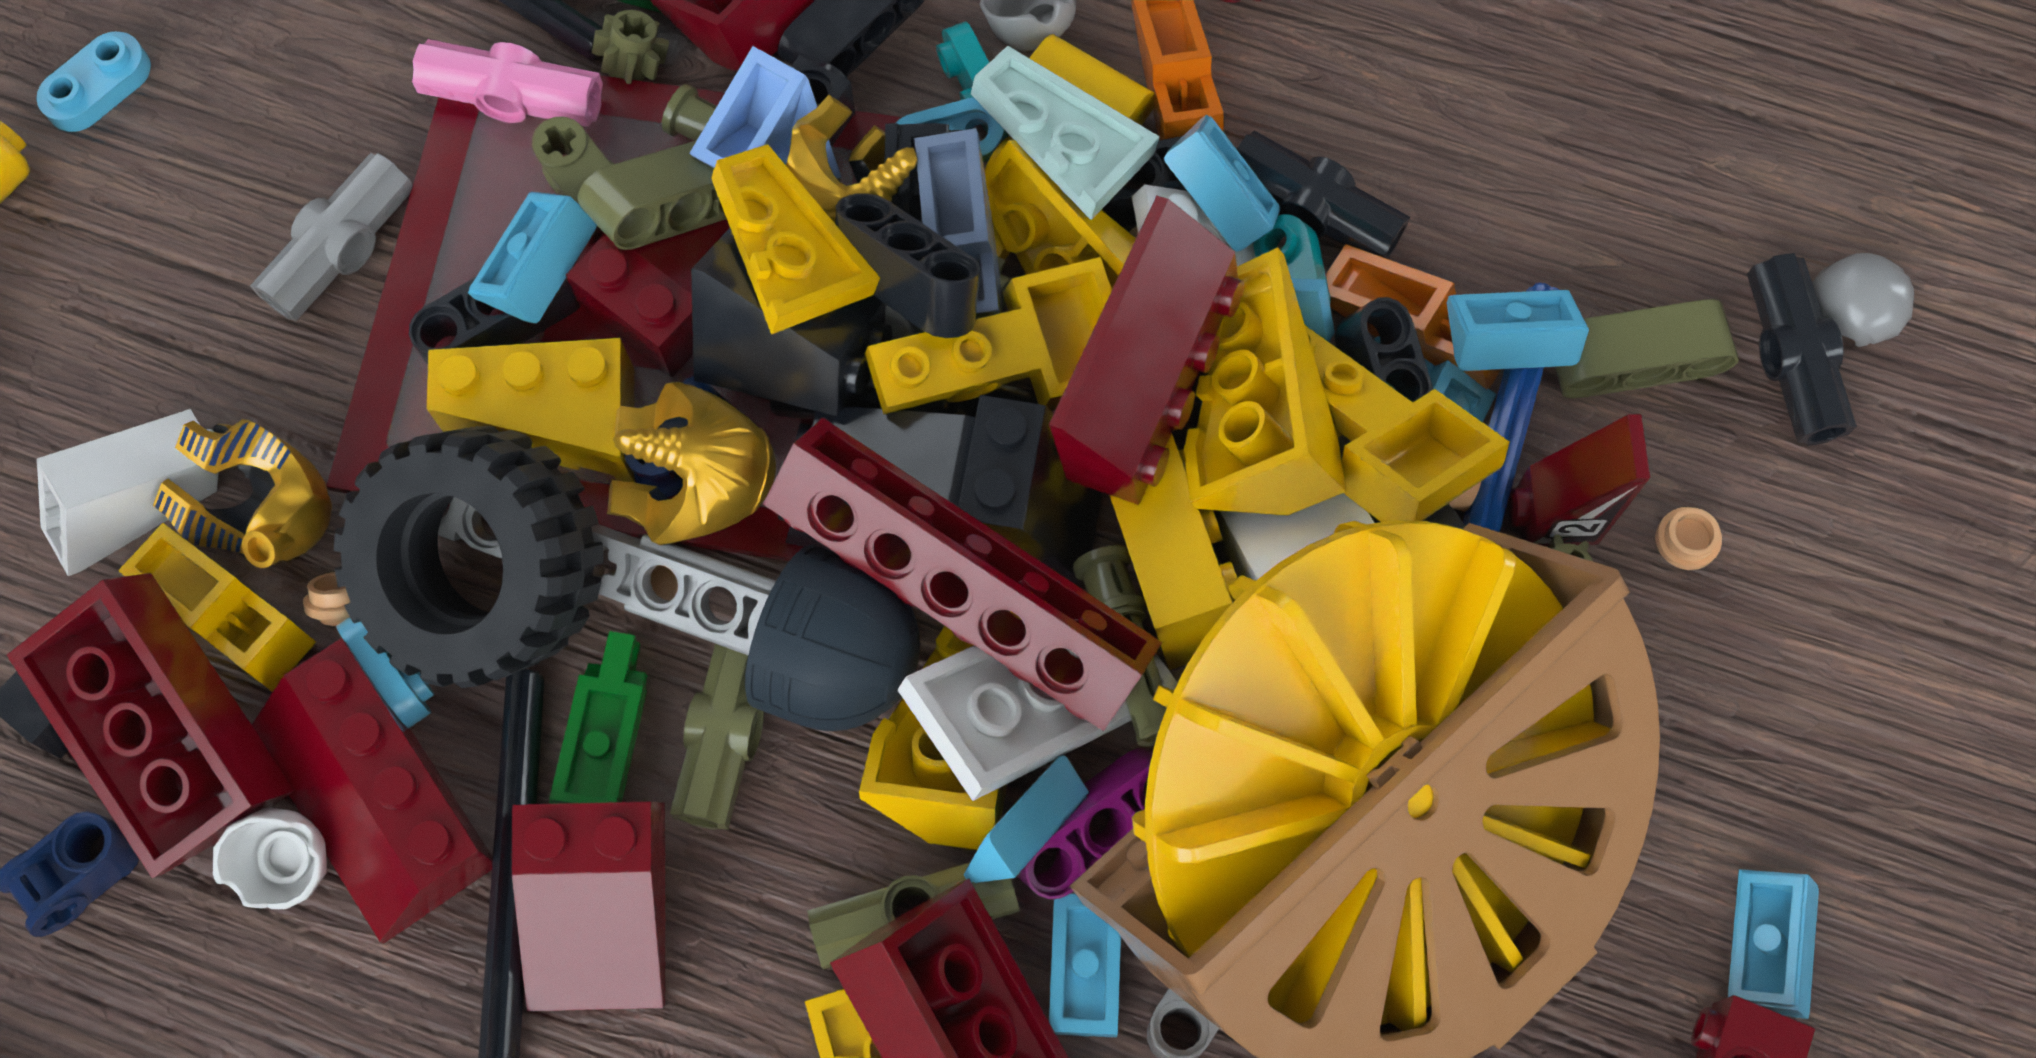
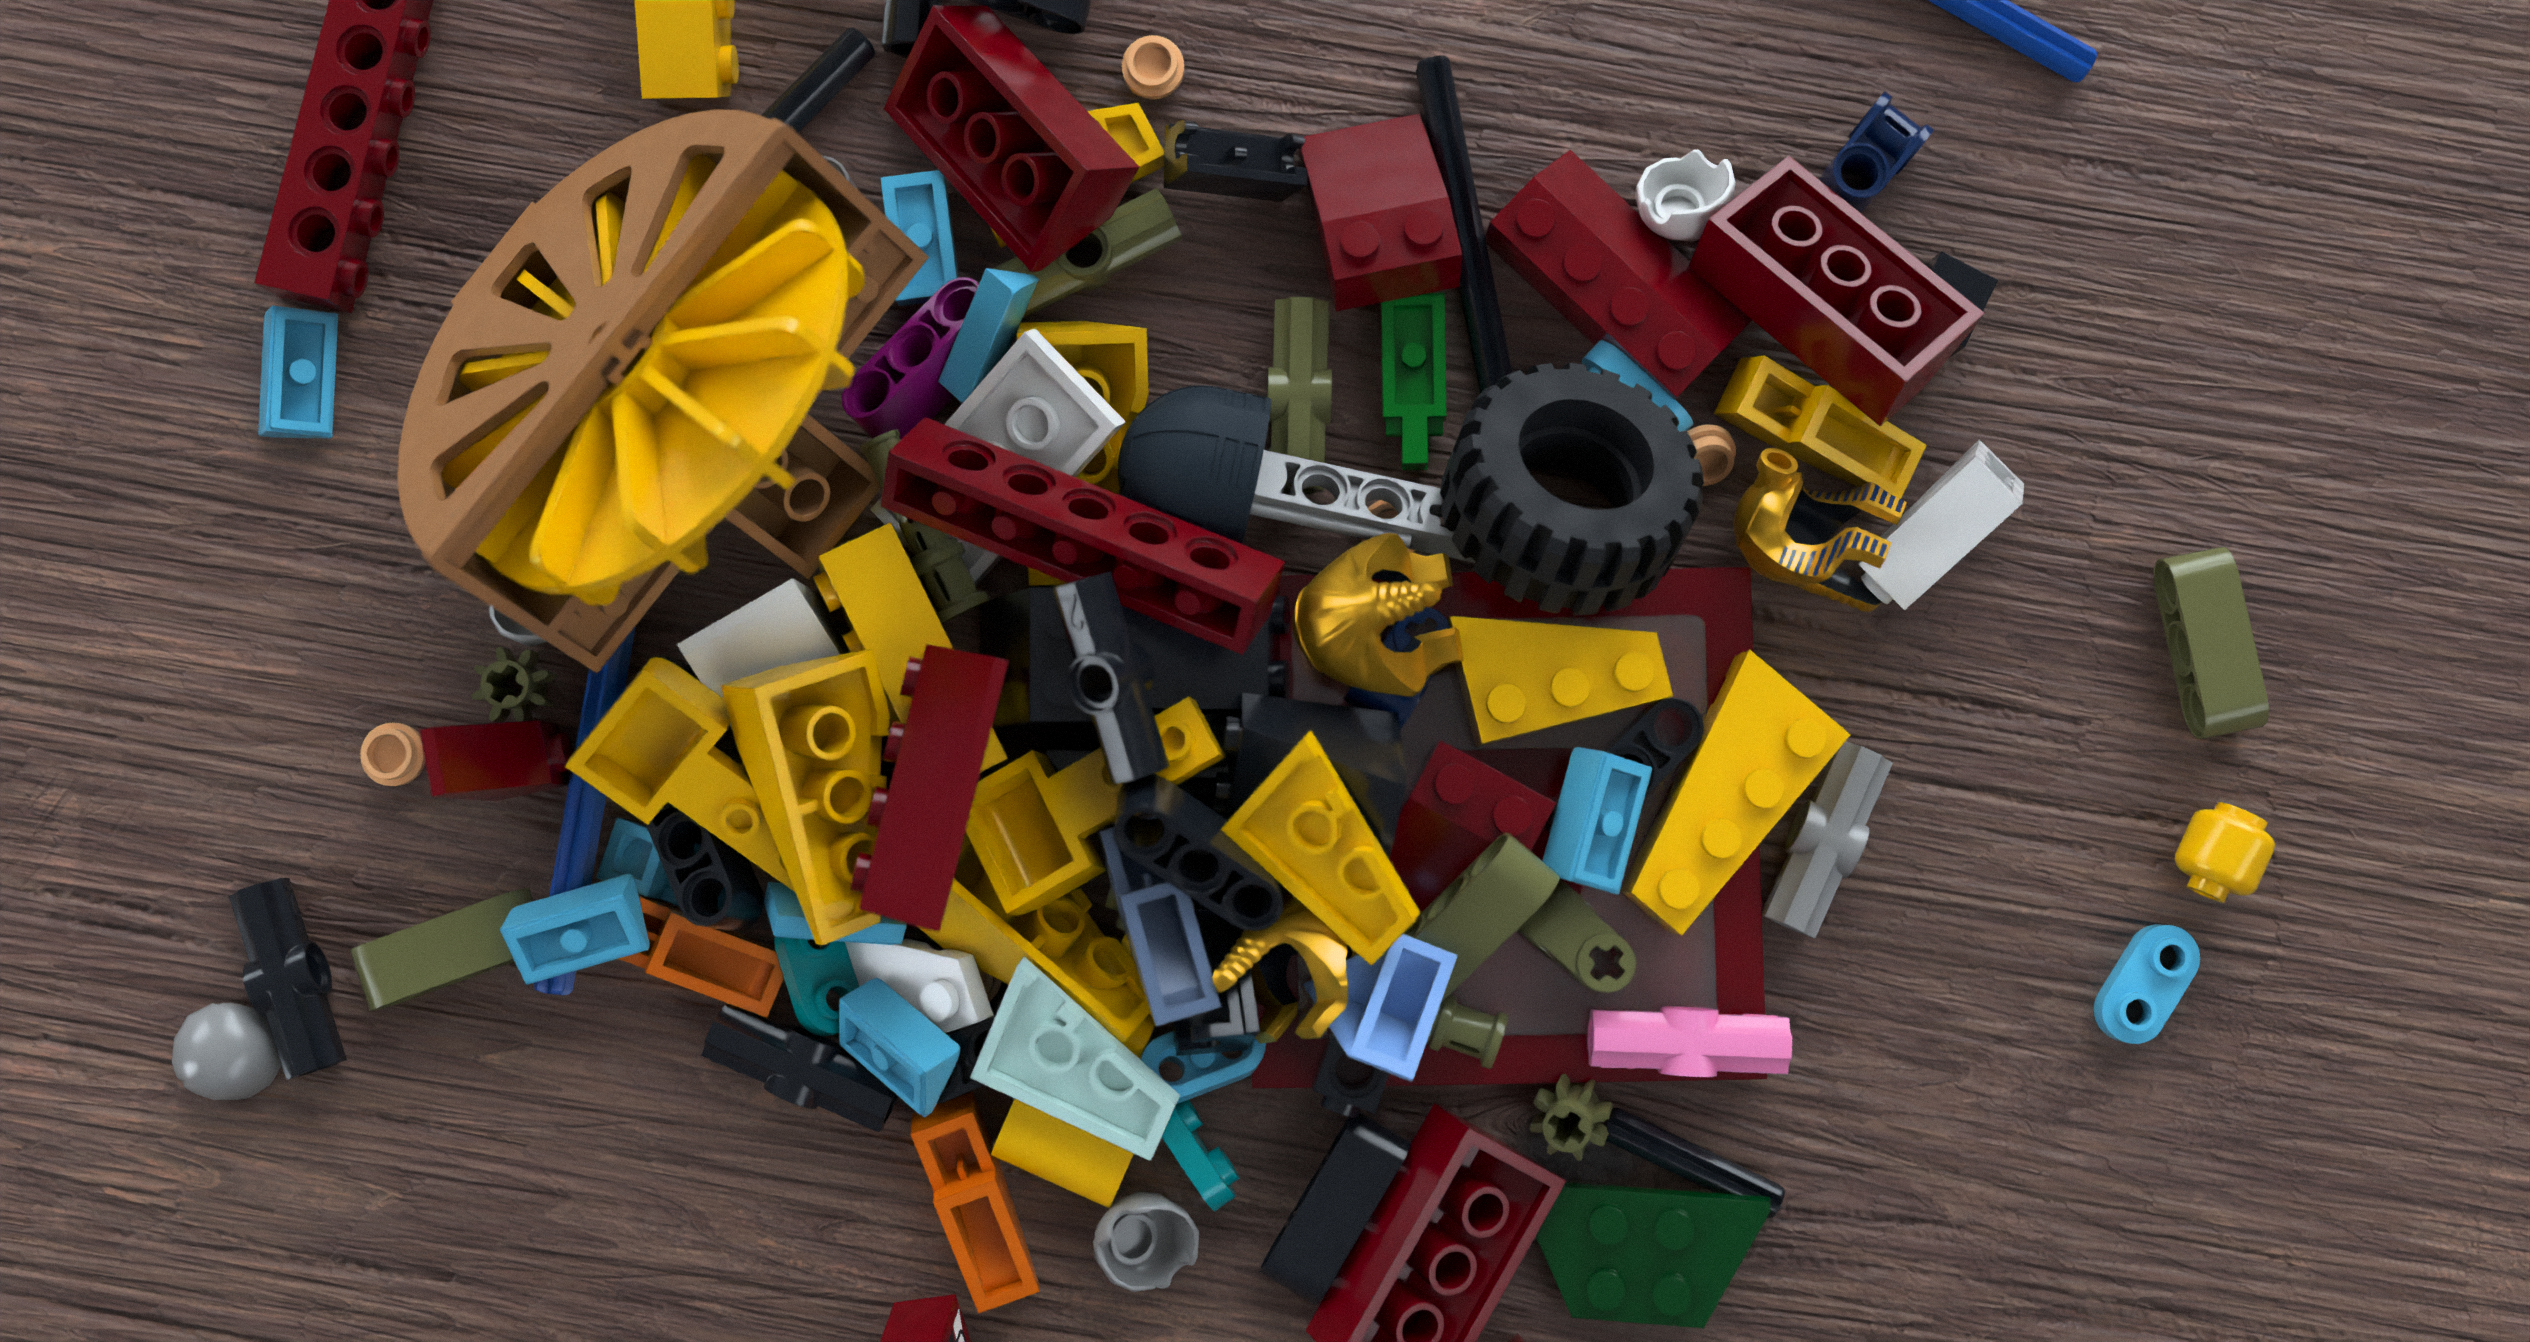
camera: 170 degrees right, 15 degrees up
(373, 284) = (1748, 769): none -> yellow wedge
(734, 980) = (1231, 162): none -> black hinge
(955, 417) = (1120, 707): none -> black piece

